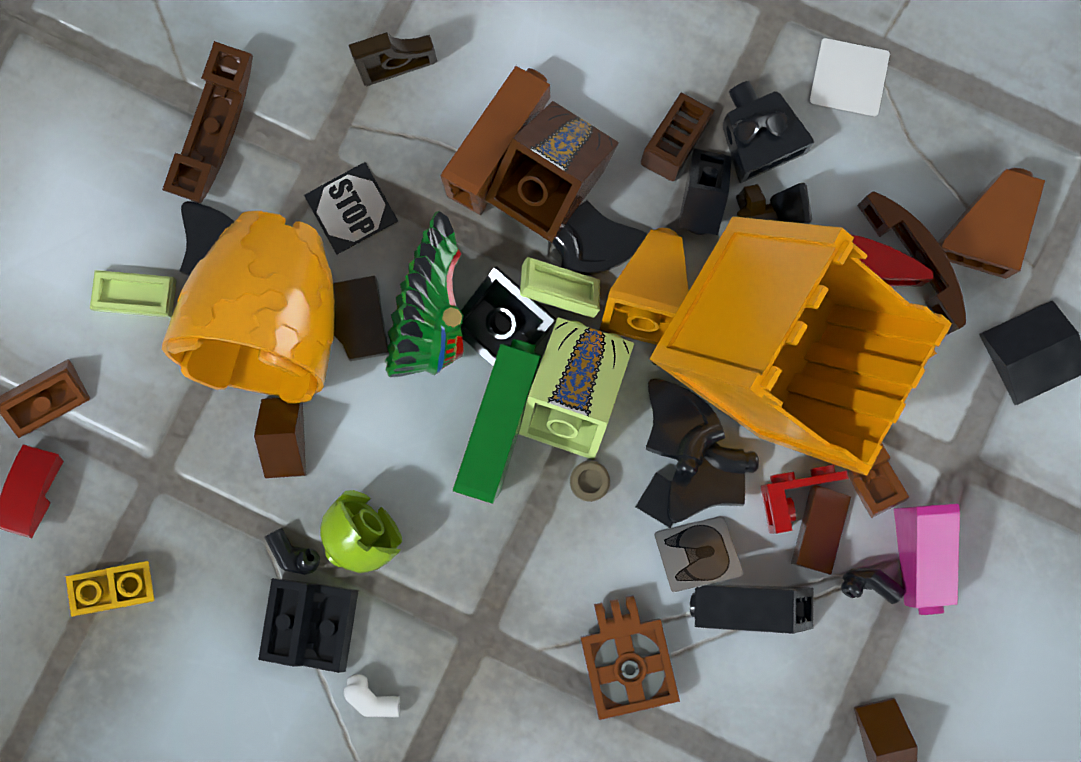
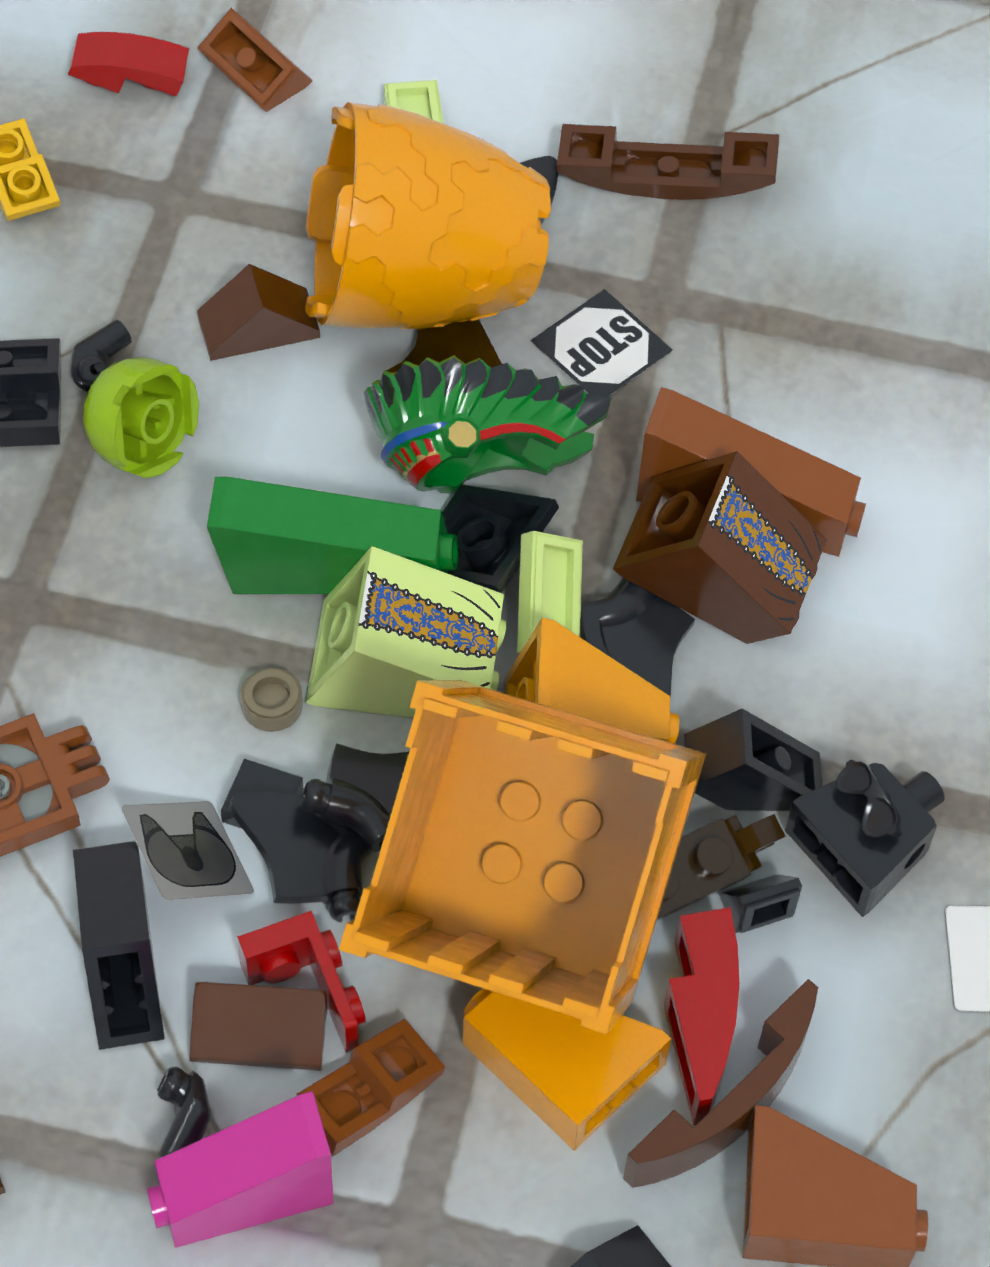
camera: 70 degrees right, 25 degrees down
(388, 57) = (821, 332): dark brown tile -> none
(662, 156) = (817, 697): reddish brown slope -> none

